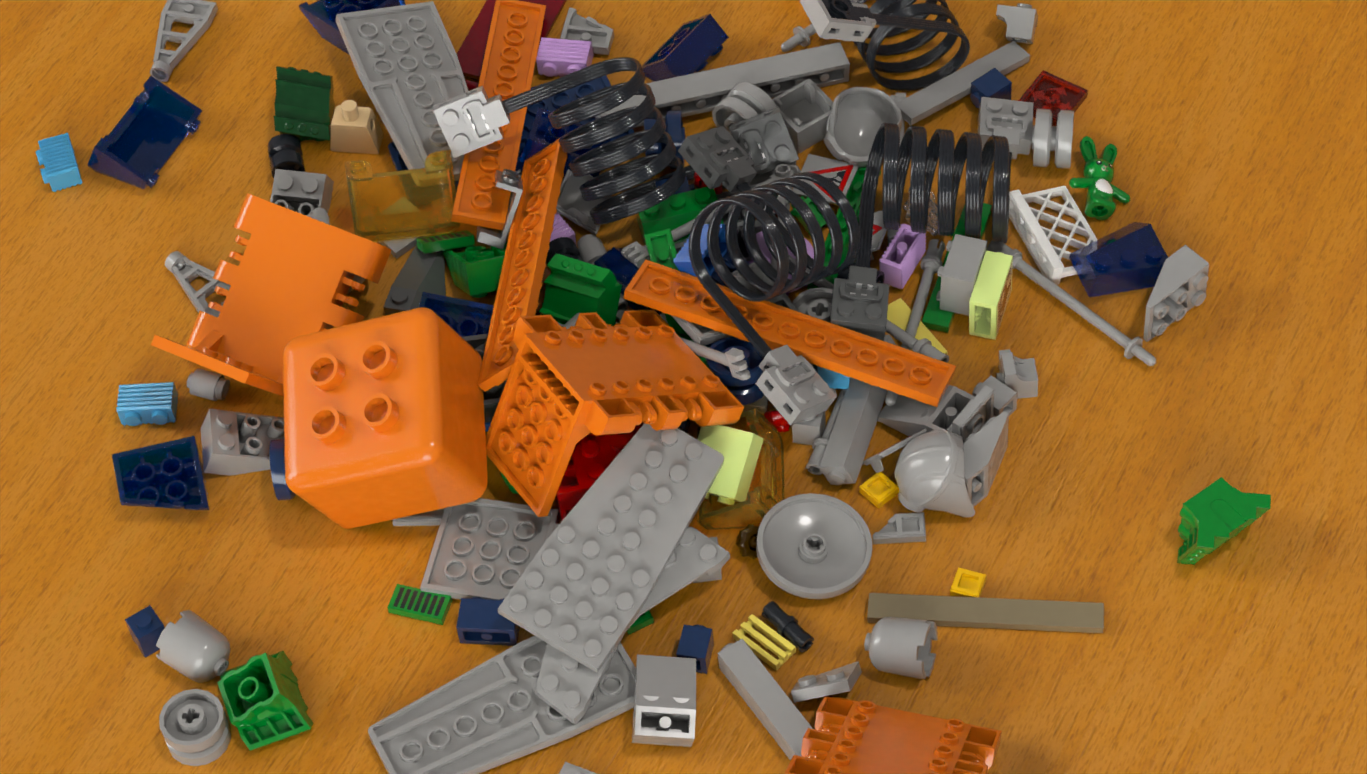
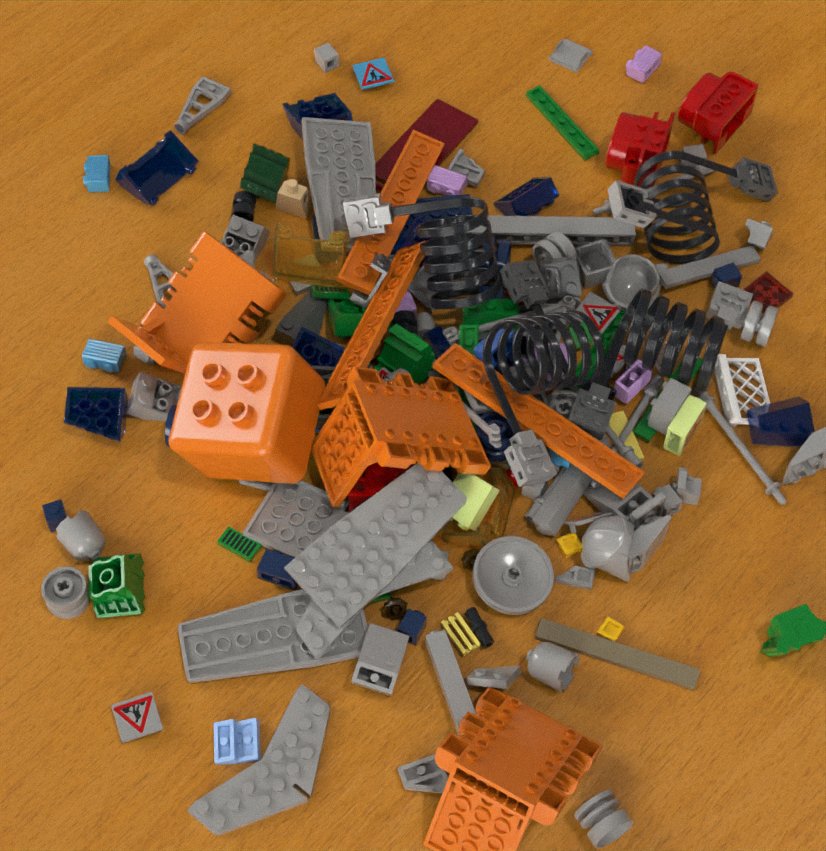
camera: 10 degrees right, 5 degrees up
(664, 630) = (395, 608): none -> dark brown piece
(1098, 179) = (783, 357): green animal -> none

